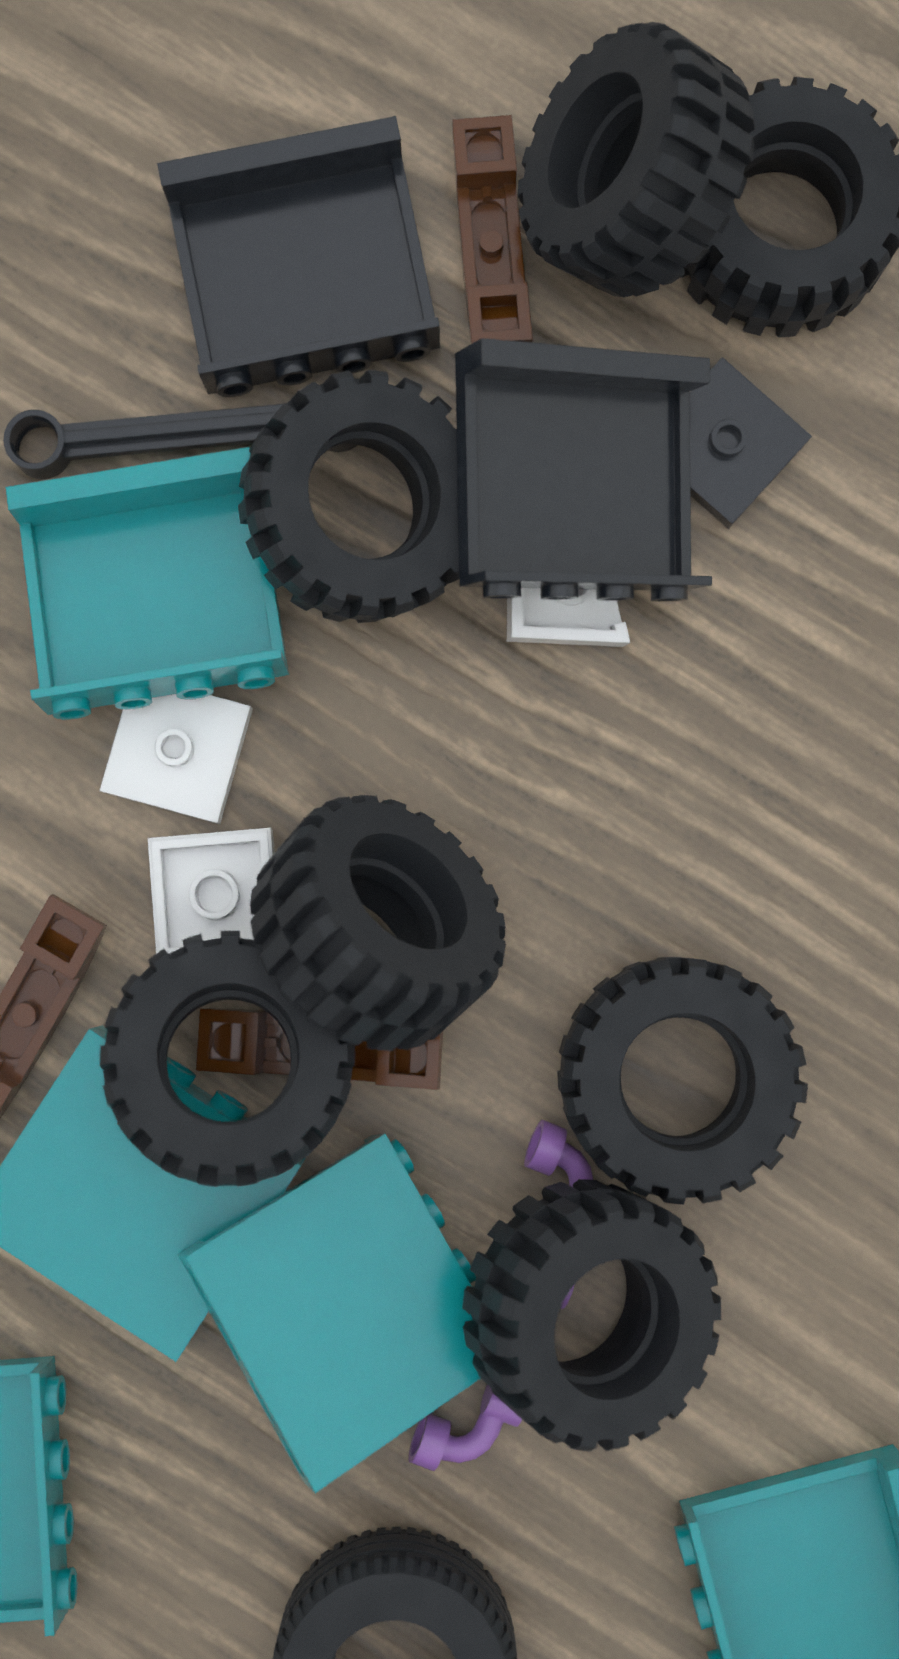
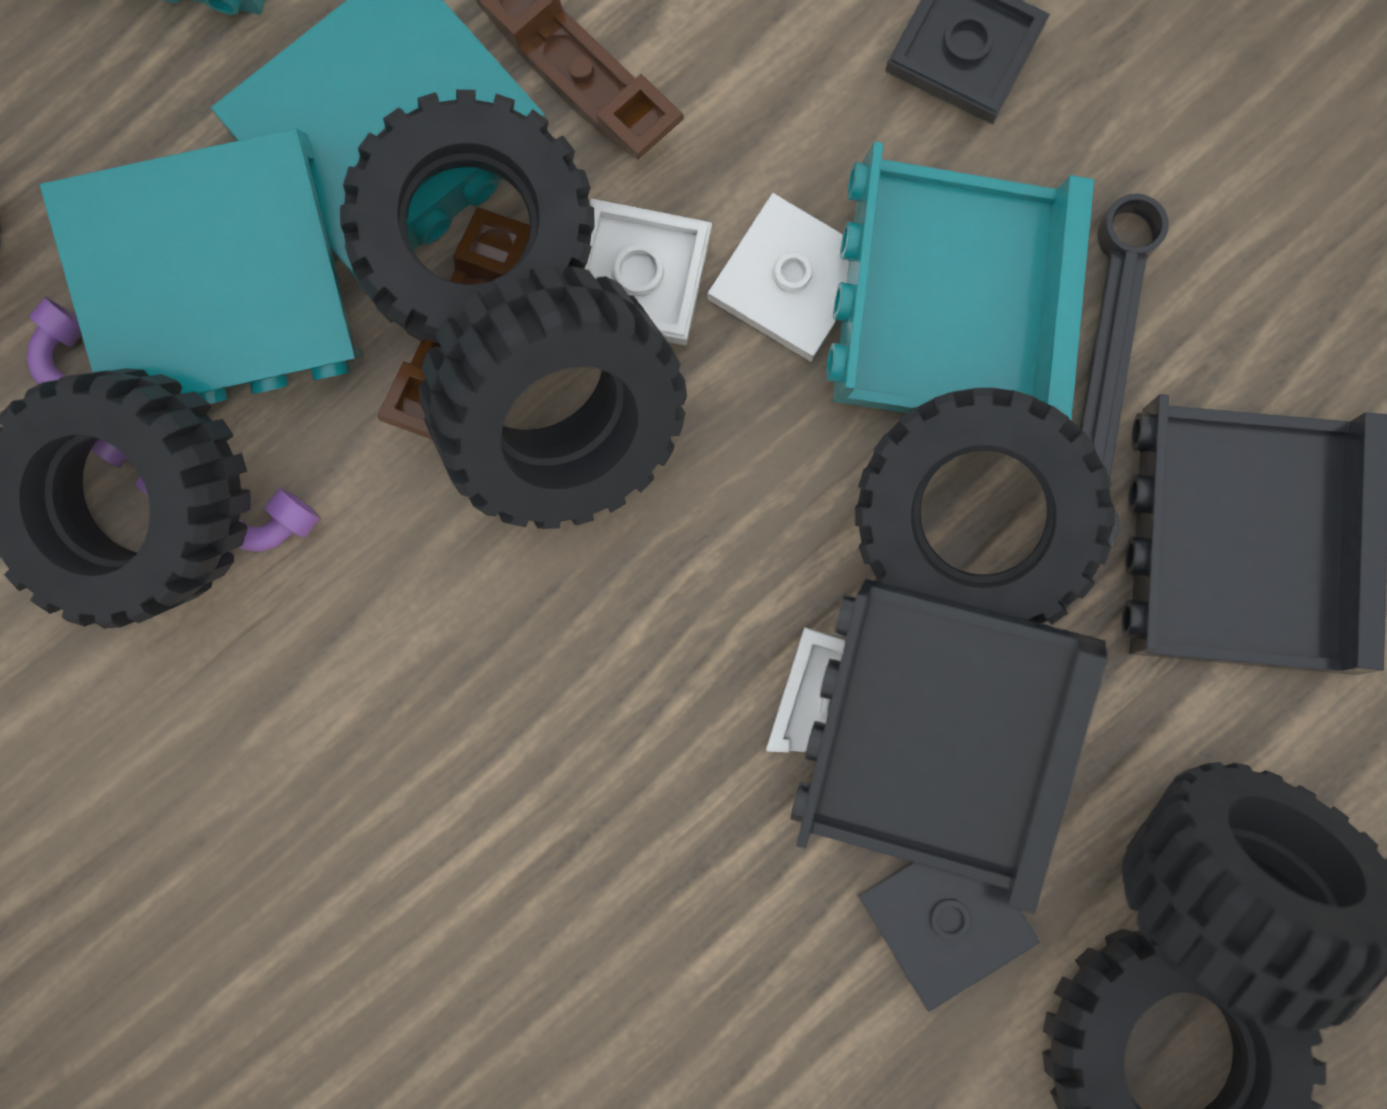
camera: 110 degrees right, 5 degrees down
(490, 229) = (1209, 731): reddish brown slope -> none
(747, 1128) = (229, 645): black tyre -> none

